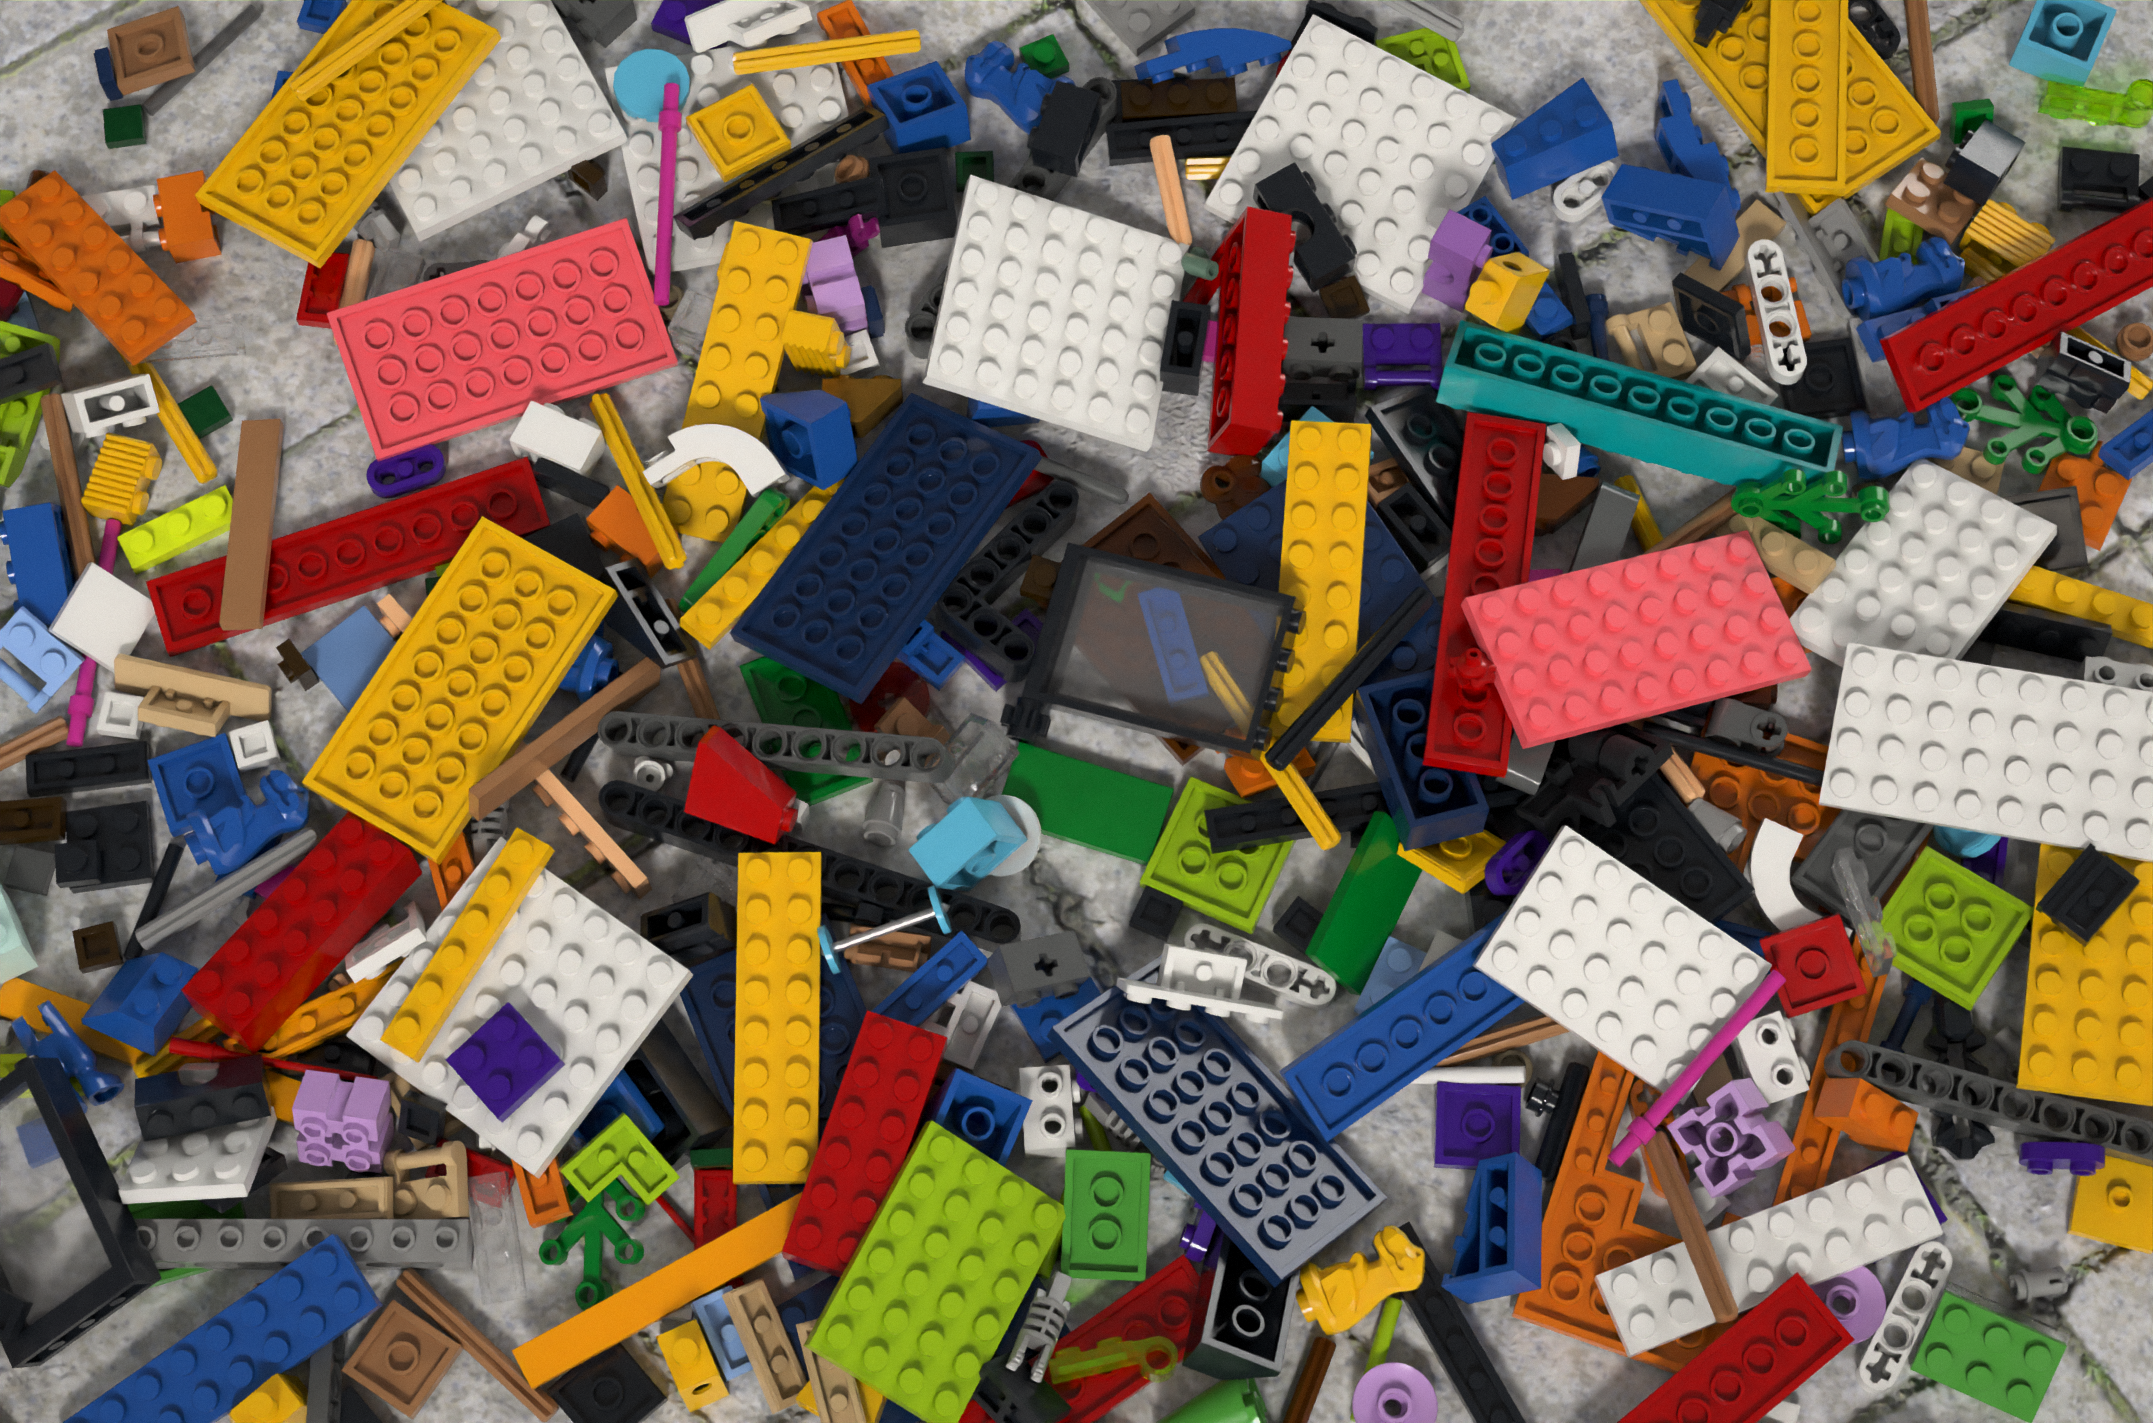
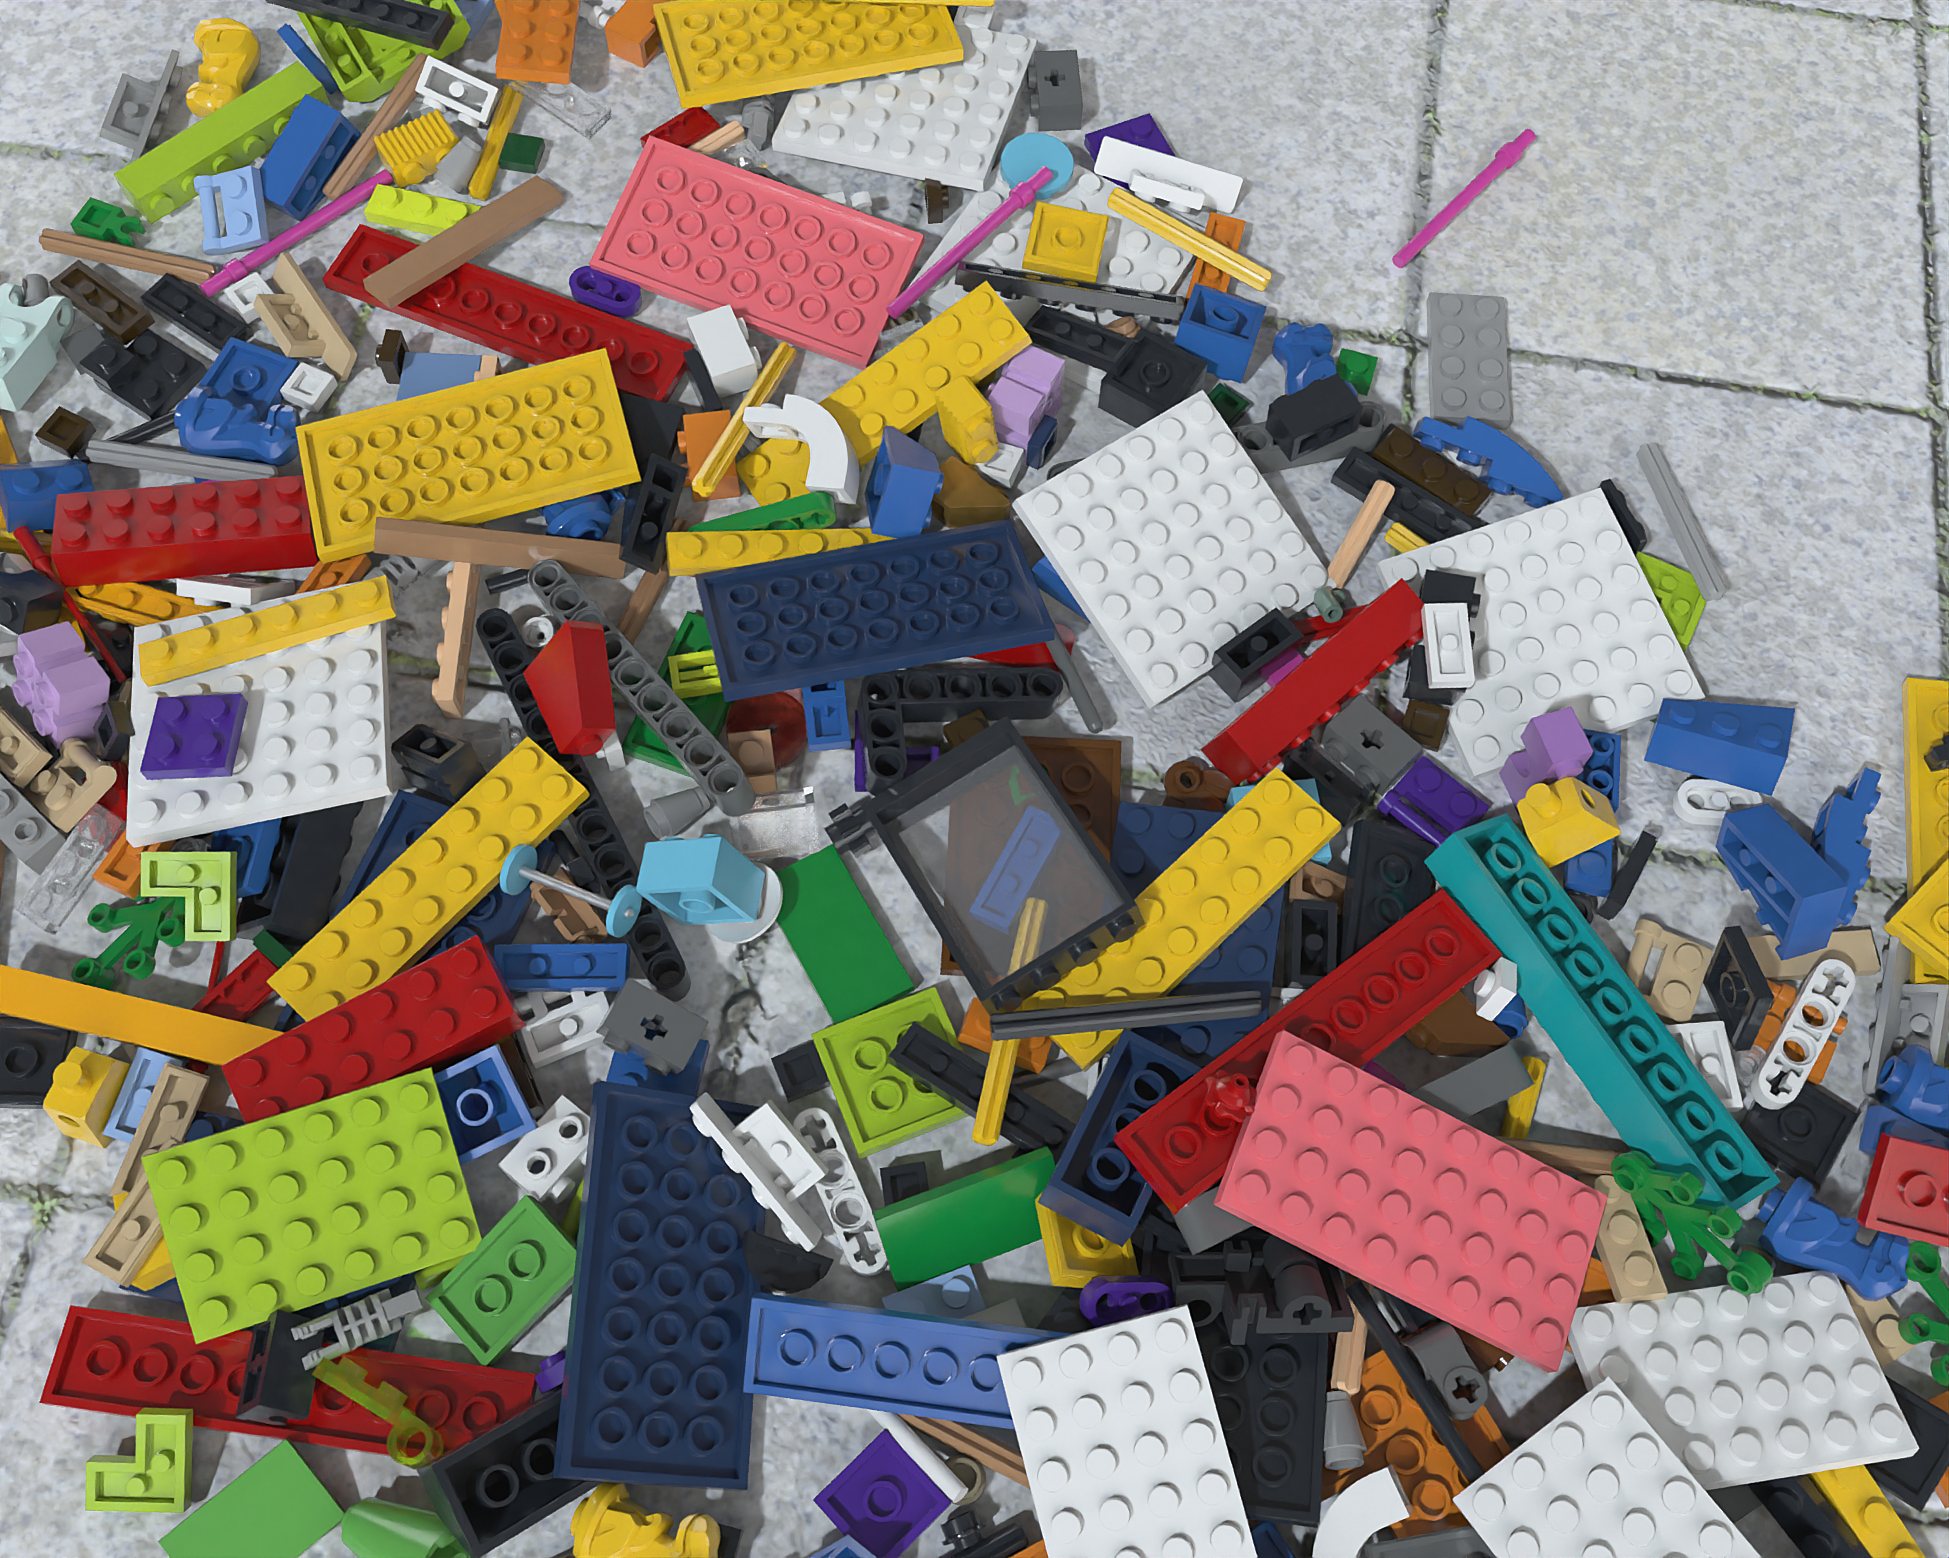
camera: 40 degrees right, 5 degrees down
(102, 616) = (305, 220): white tile -> none
(173, 465) = (459, 164): none -> light grey cone
(789, 692) = (697, 681): none -> neon yellow tile
(856, 233) = (1079, 376): magenta plate -> none
(1272, 1044) = (782, 1265): none -> black tile
(1322, 231) = (1447, 645): none -> white plate
(1599, 312) = (1637, 907): dark blue bar -> none

